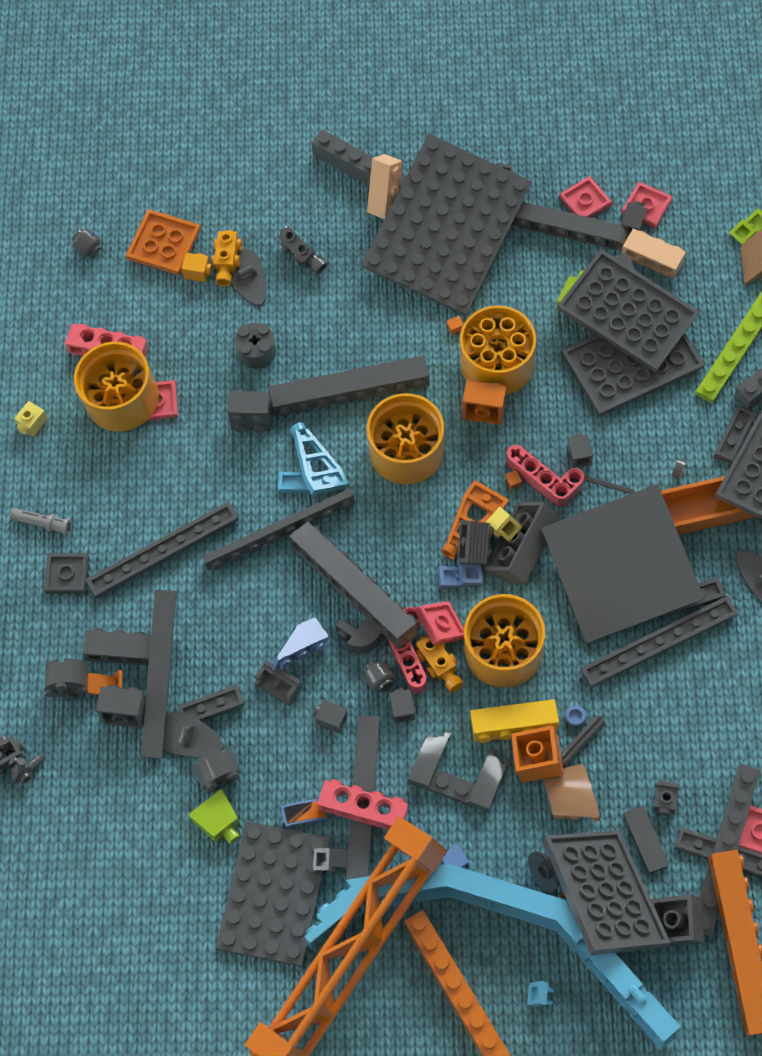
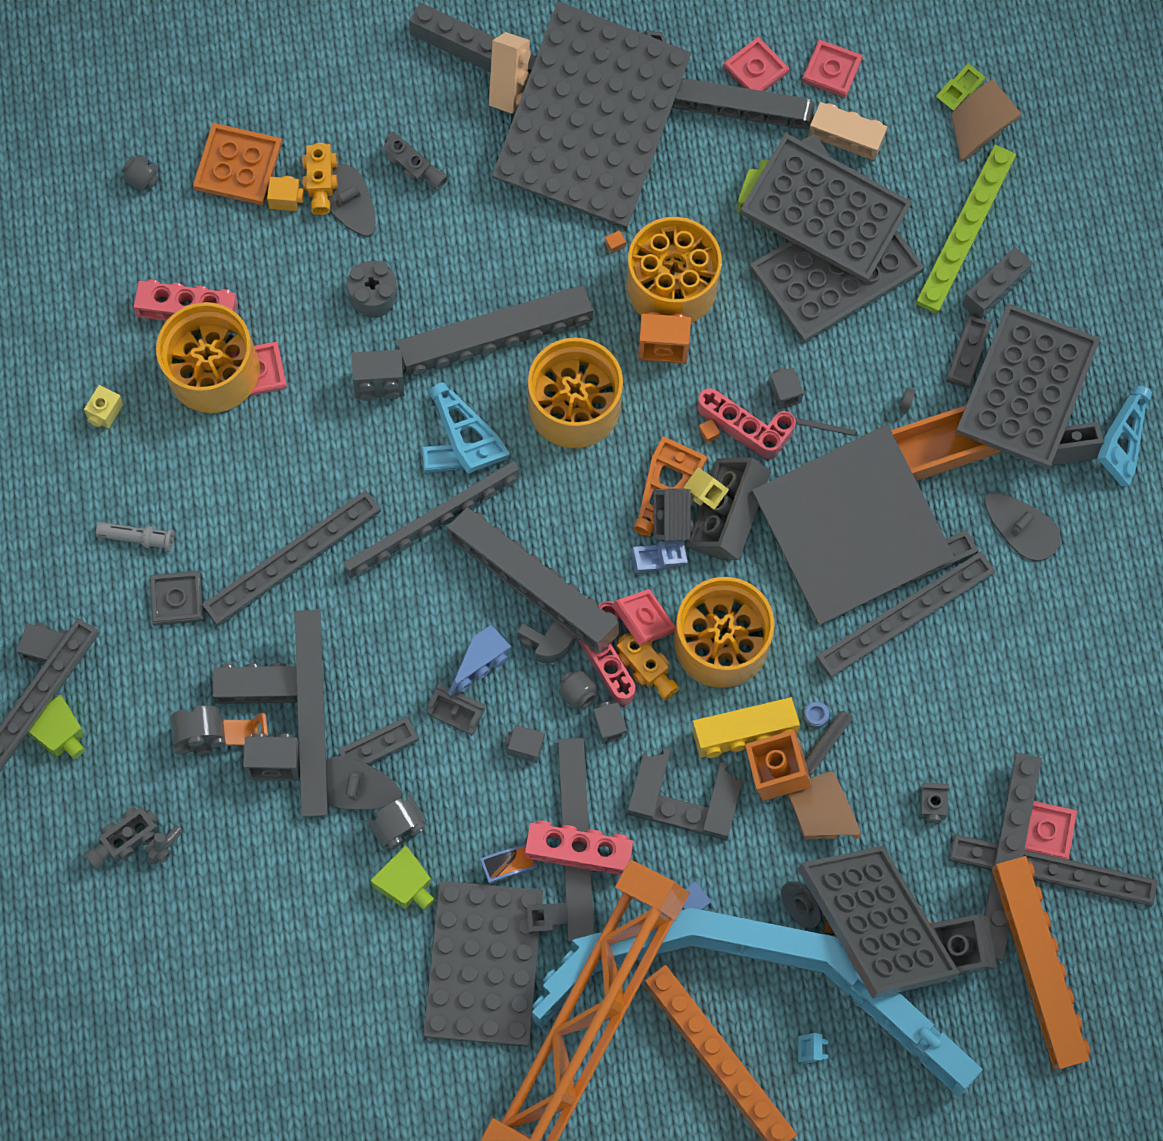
camera: 15 degrees left, 5 degrees up
(635, 216) = (820, 85): dark grey brick -> none
(646, 839) = (915, 853): dark grey tile -> none

